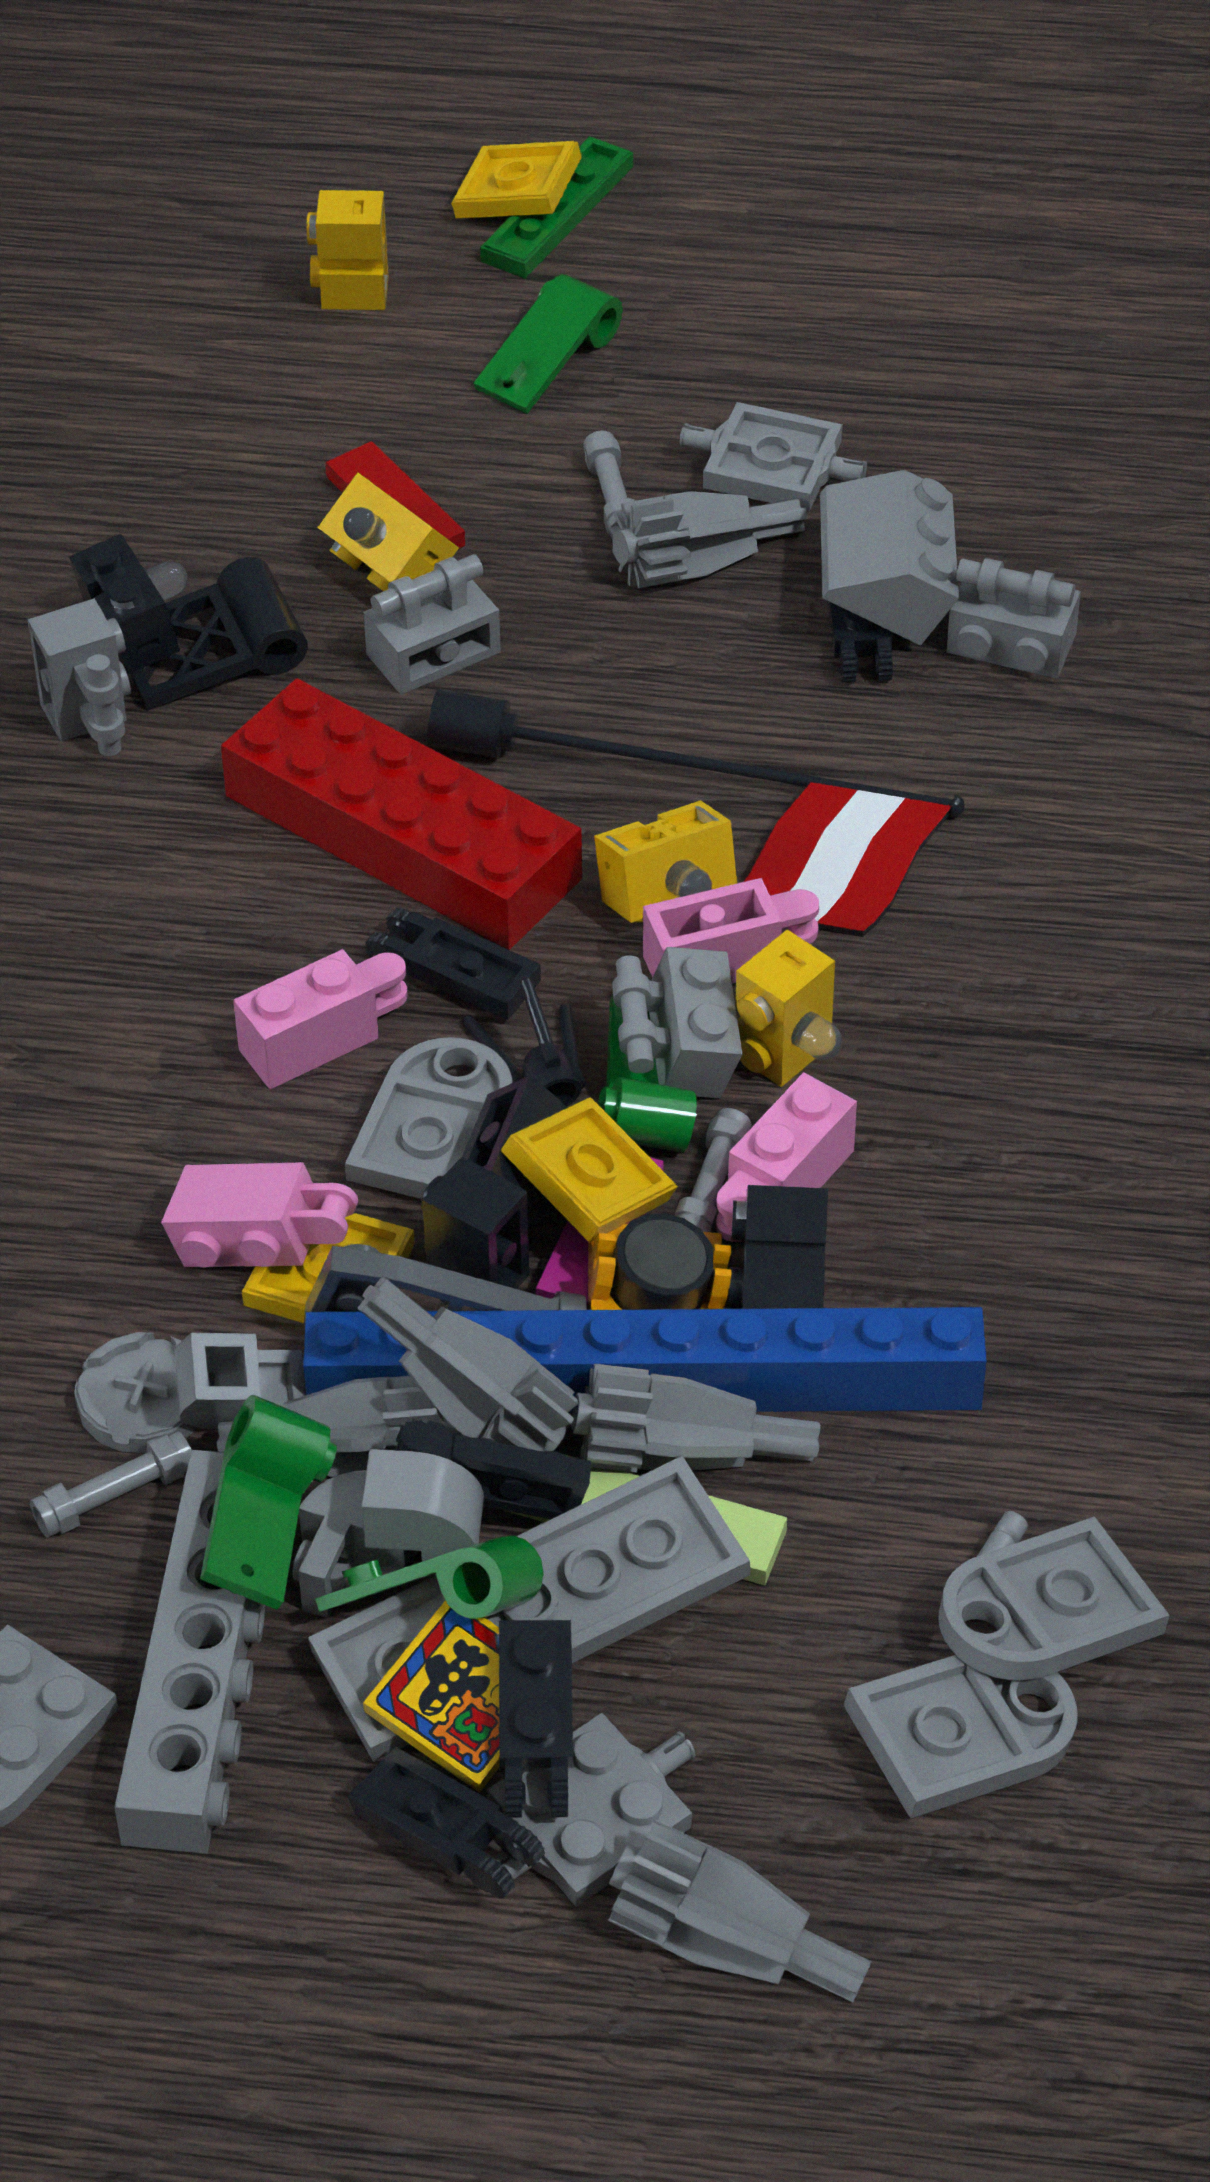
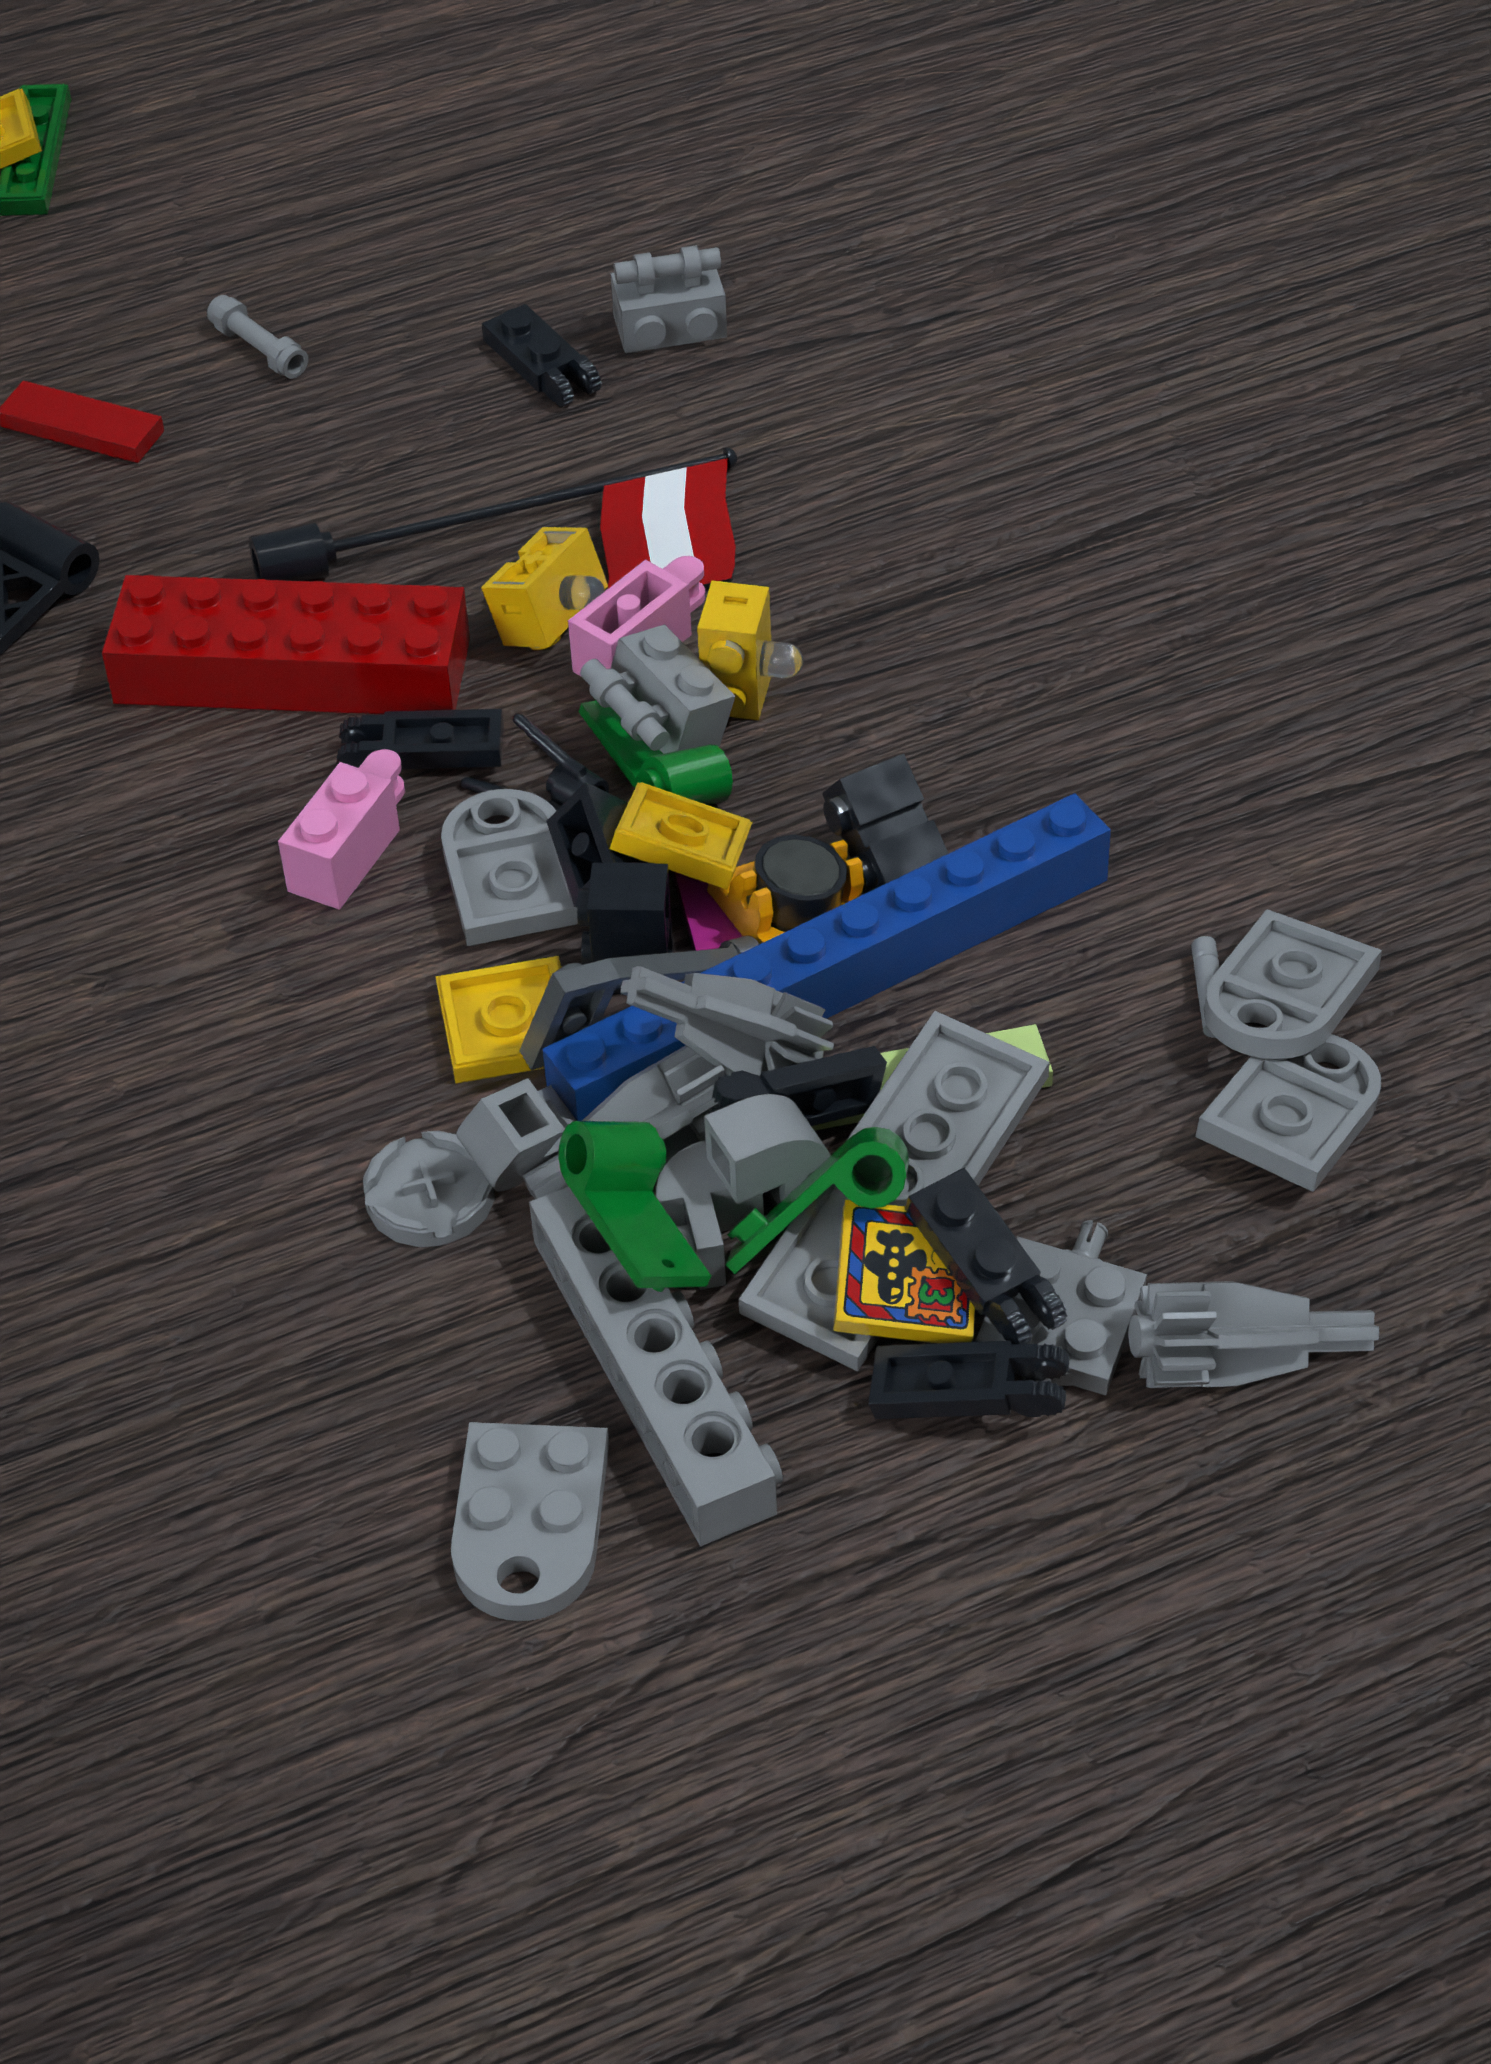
camera: 30 degrees left, 0 degrees up
(59, 1508) = (438, 1309): light grey bar -> none
(254, 1214) = (429, 999): bright pink brick -> none
(383, 535) = (107, 443): yellow piece -> none
(432, 624) = (197, 495): light grey brick -> none
(547, 338) = (114, 248): green door -> none
(652, 1419) = (899, 990): light grey piece -> none
(695, 534) = (359, 342): light grey piece -> none
(721, 1136) = (755, 776): light grey bar -> none
(772, 455) = (374, 262): light grey plate -> none
(791, 1145) = (817, 755): bright pink brick -> none
(890, 551) = (542, 285): light grey slope -> none

